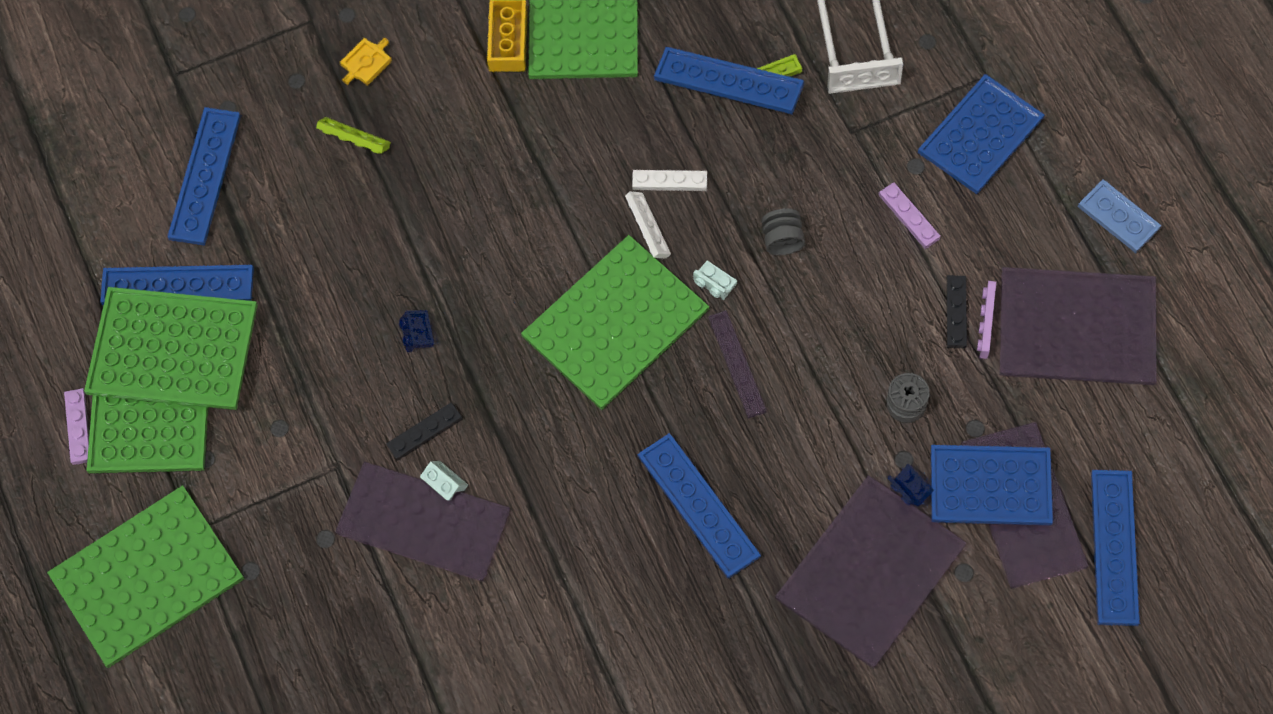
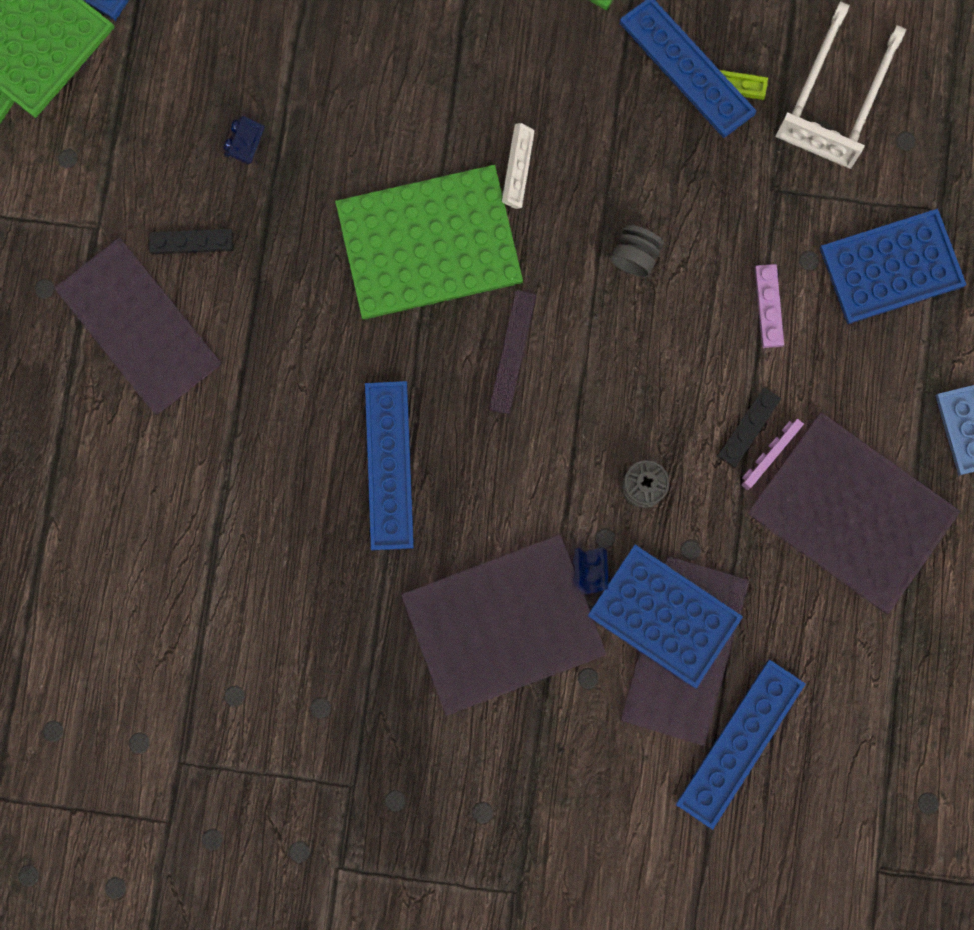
camera: 30 degrees right, 15 degrees up
(443, 479) = (177, 298): light aqua bracket -> none
(669, 180) = (568, 133): white plate -> none
(714, 280) = (546, 258): light aqua bracket -> none

